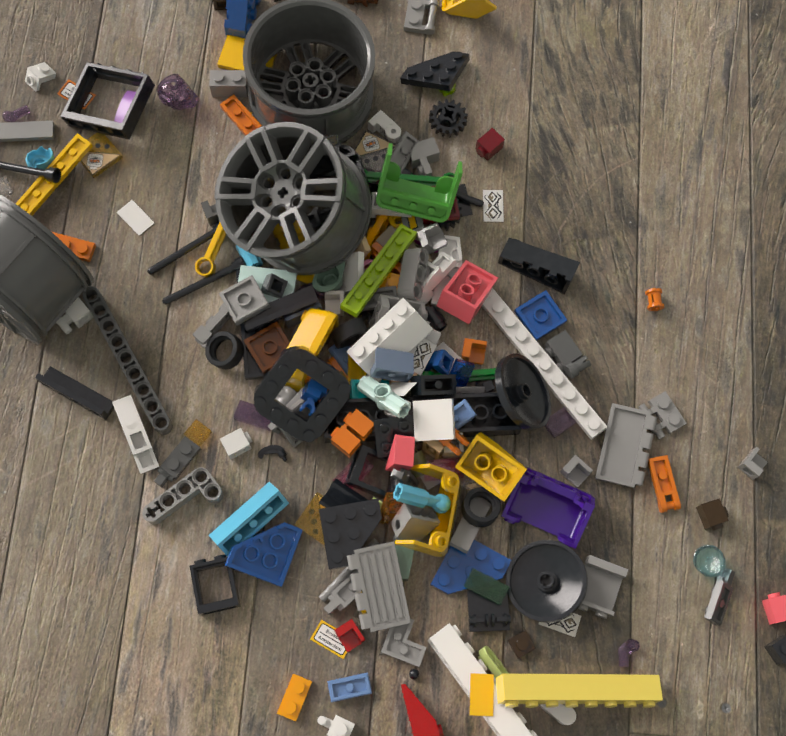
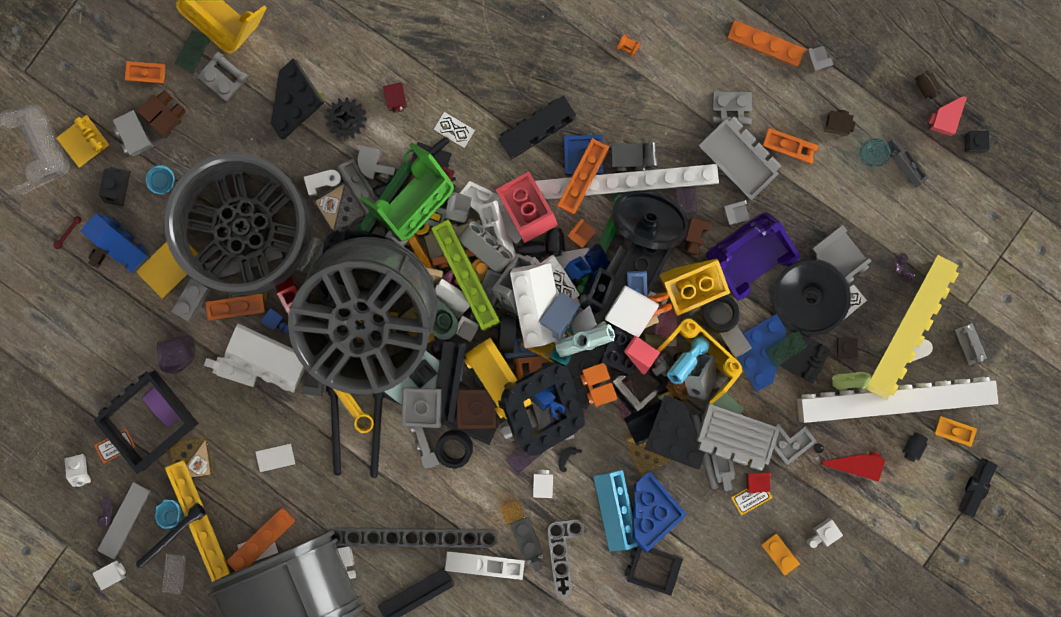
camera: 55 degrees left, 15 degrees up
(190, 146) = (230, 372): none -> white hinge
(211, 149) = (264, 358): none -> white slope
(349, 687) = (799, 506): medium blue plate -> none
(453, 334) = (555, 242): none -> black brick
(481, 694) = (872, 408): yellow sticker -> none
(522, 321) = (583, 176): none -> orange plate
(534, 443) = (694, 234): none -> reddish brown hips
(734, 412) = (766, 43): none -> orange plate

